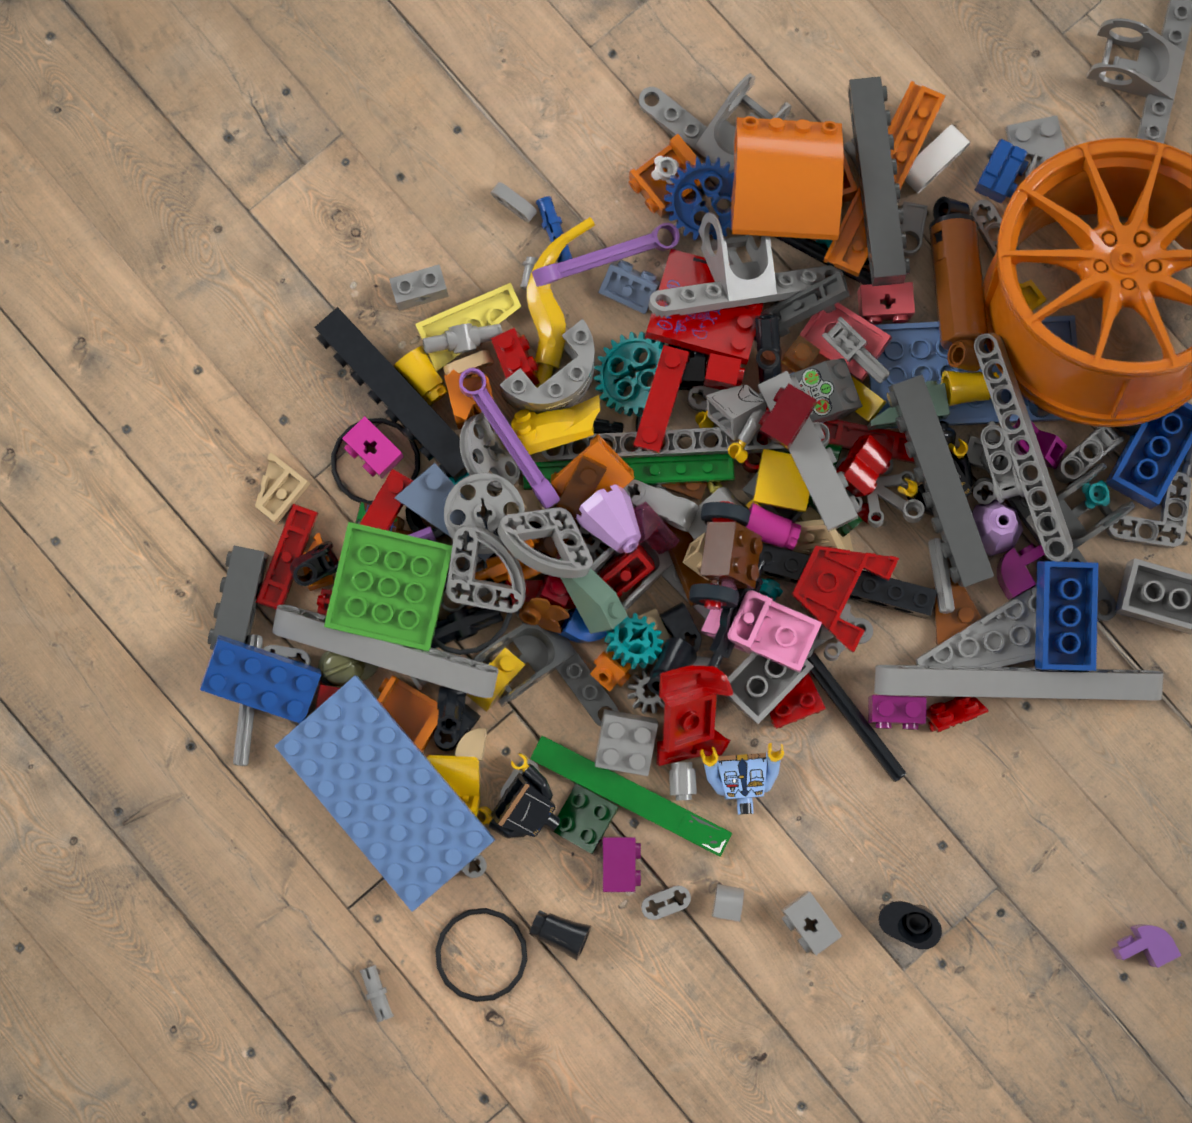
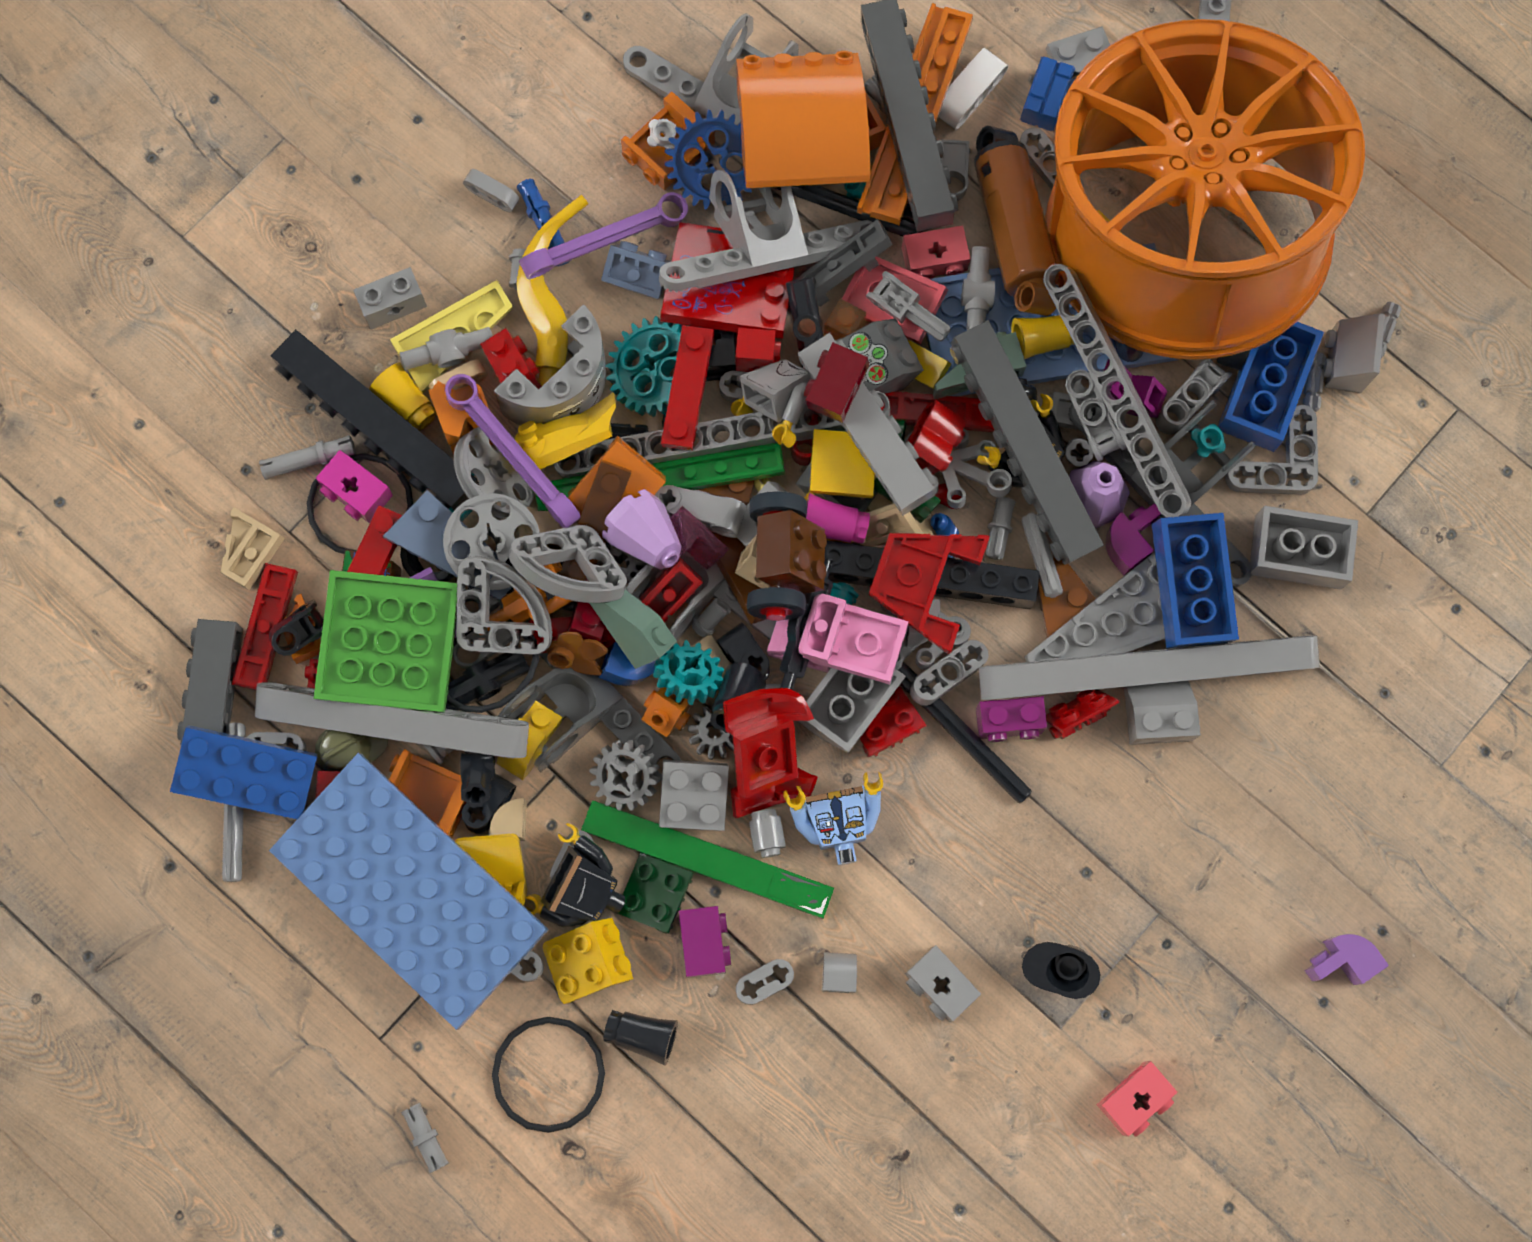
camera: 10 degrees left, 5 degrees down
(348, 415) = (296, 460): none -> light grey pin
(523, 867) = (587, 960): none -> yellow bracket
(567, 709) = (633, 787): none -> light grey gear
(656, 595) = (714, 613): none -> light grey pin
(861, 650) = (943, 684): none -> light grey beam
(862, 541) = (943, 526): none -> blue arm
(909, 547) = (1000, 528): none -> light grey axle
(917, 341) = (978, 288): none -> light grey pin
(944, 1036) = (1119, 1103): none -> coral brick
(1023, 721) = (1161, 713): none -> light grey slope

